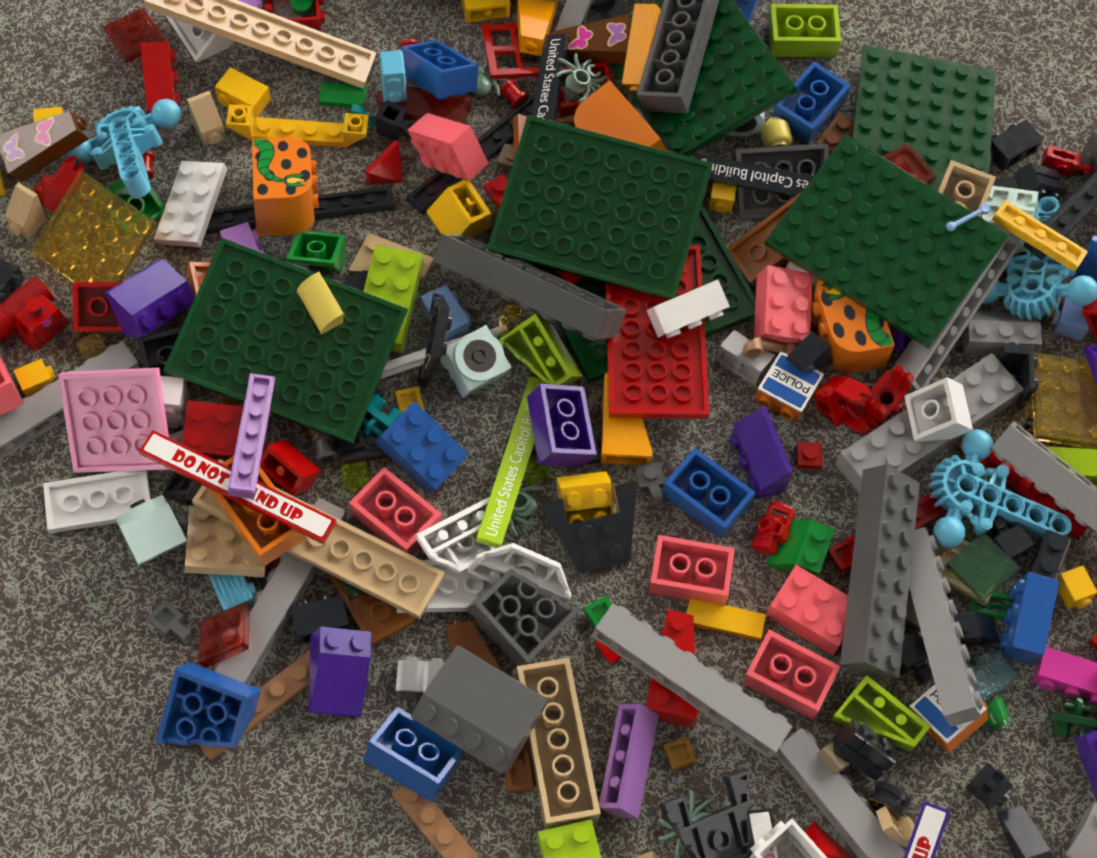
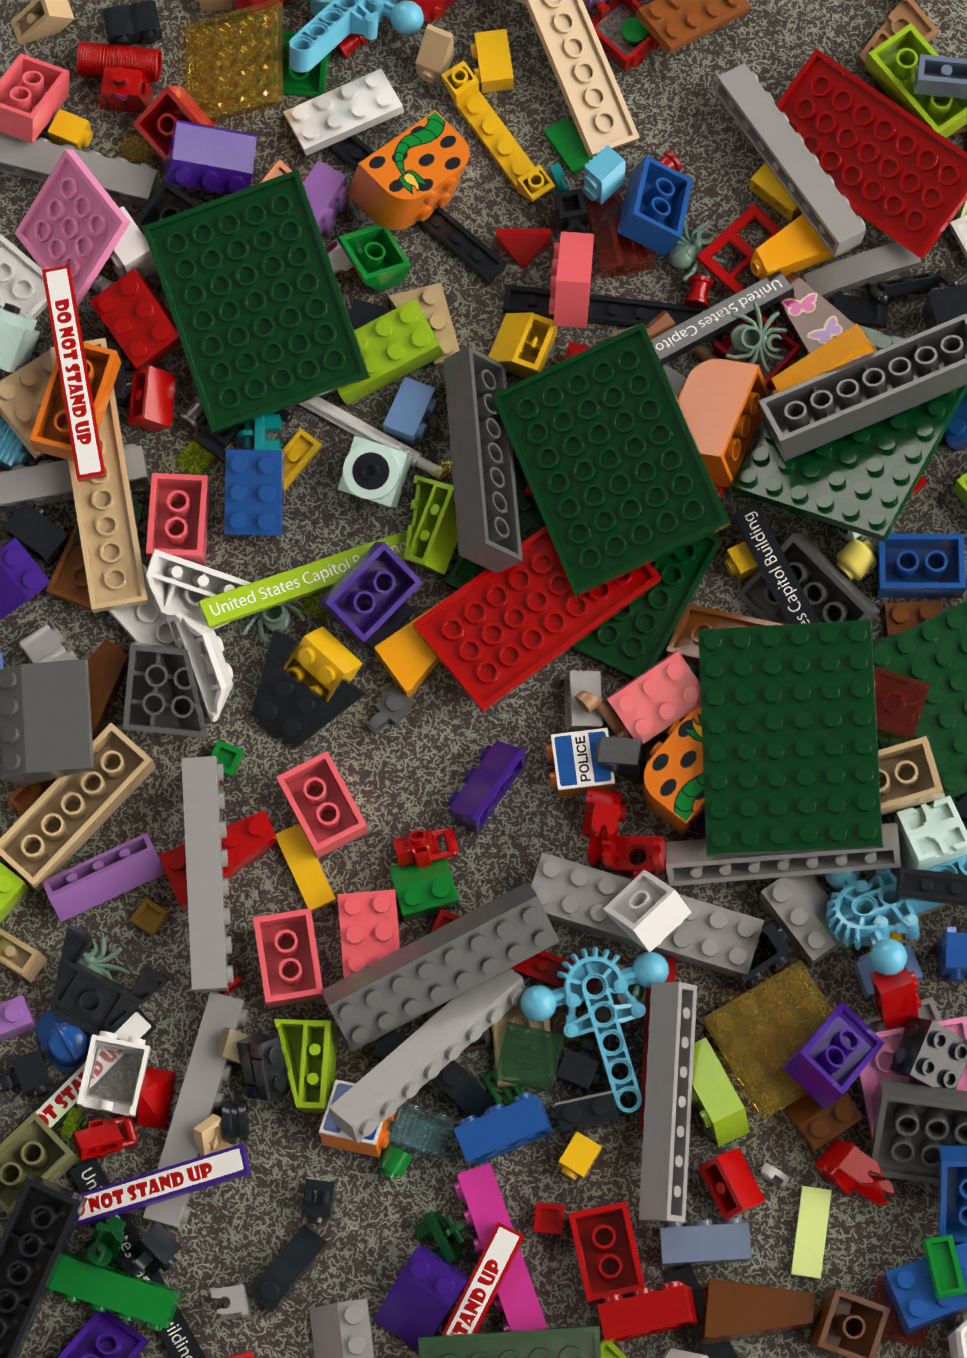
camera: 60 degrees right, 10 degrees up
(251, 436) = (131, 346): tile -> none
(320, 303) = (305, 300): light yellow brick -> none
(436, 344) = (366, 415): black wing -> none
(688, 309) = (570, 614): white brick -> none
(708, 493) = (410, 766): blue brick -> none
(809, 455) = (529, 829): red plate -> none
(985, 208) = (888, 802): light blue hinge -> none
(1039, 235) = (911, 875): yellow tile -> none

